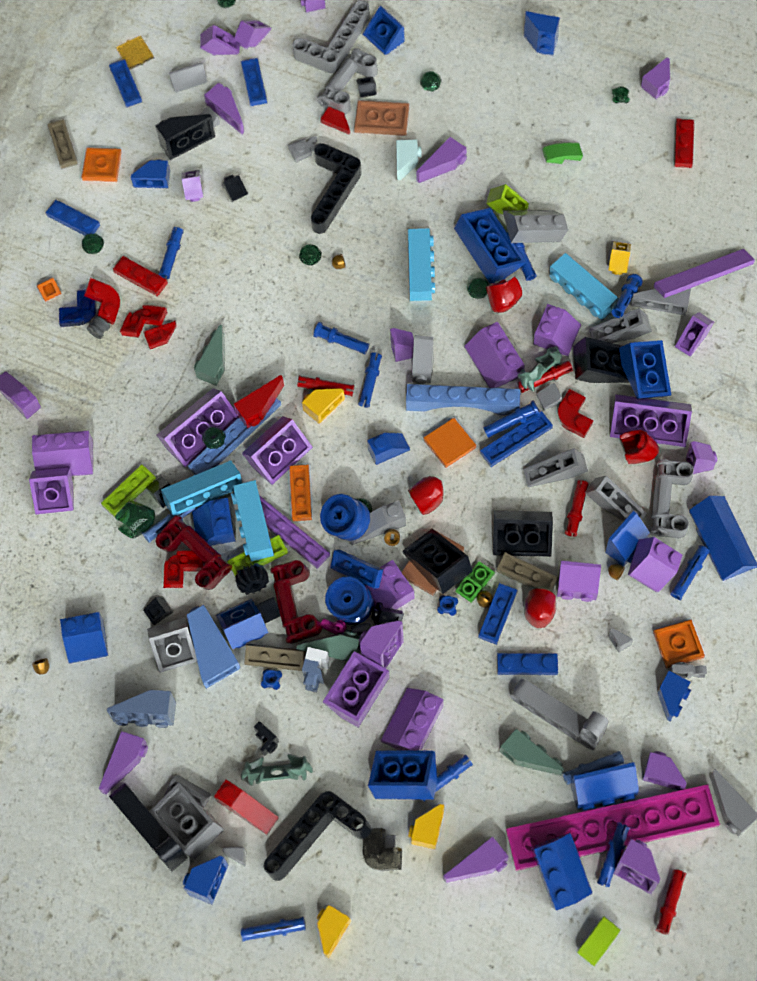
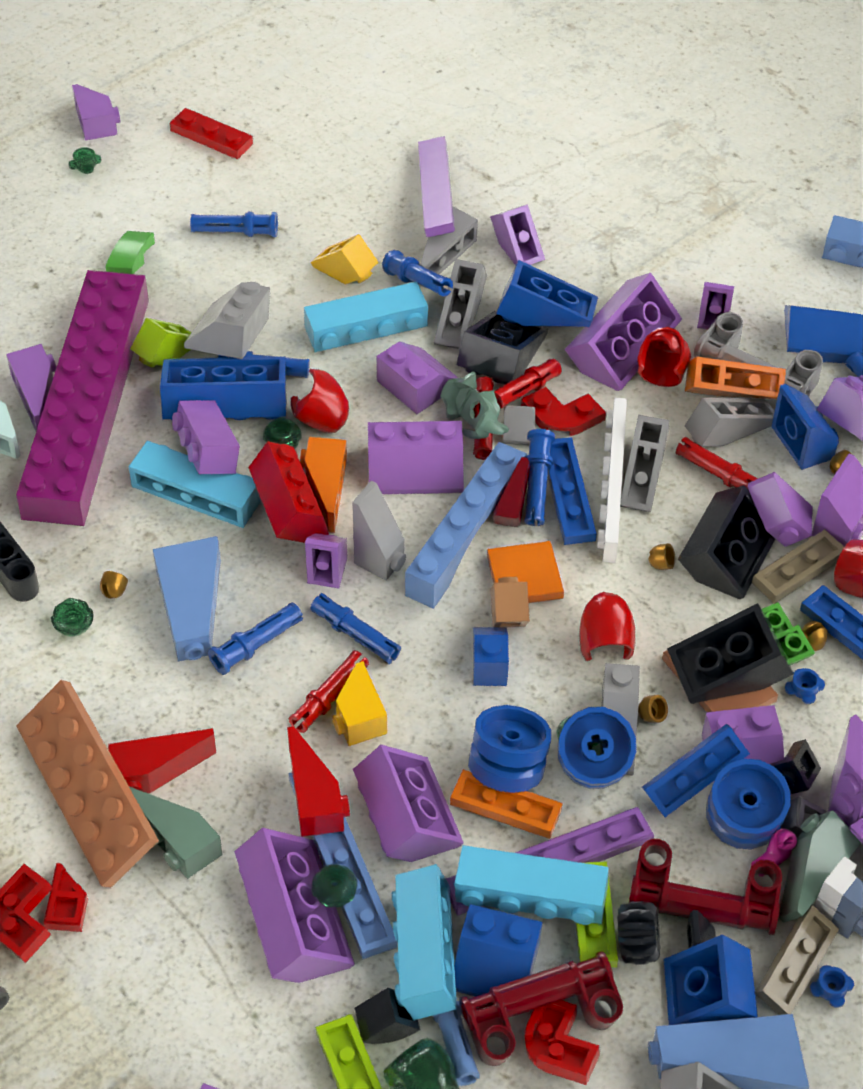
camera: 70 degrees left, 15 degrees down
(217, 309) = (87, 784): none -> nougat plate
(245, 331) = (158, 760): none -> red slope
(325, 477) = (509, 748): none -> blue wheel
(349, 297) = (189, 591): none -> medium blue slope
(418, 442) = (509, 603): none -> medium nougat brick
(430, 310) = (286, 493): none -> red slope
(443, 252) = (206, 437): none -> medium lavender brick
(449, 185) = (83, 400): none -> magenta brick
(459, 320) = (325, 471): none -> orange slope
(489, 414) = (511, 504): none -> dark red slope
(499, 507) = (662, 557): none -> pearl gold hinge
(527, 459) = (611, 488): none -> white plate
(553, 549) = (781, 509): none -> medium lavender slope
(578, 385) = (532, 379): none -> red pin
(620, 197) = (247, 224): none -> blue pin
(642, 489) = (733, 379): none -> orange slope

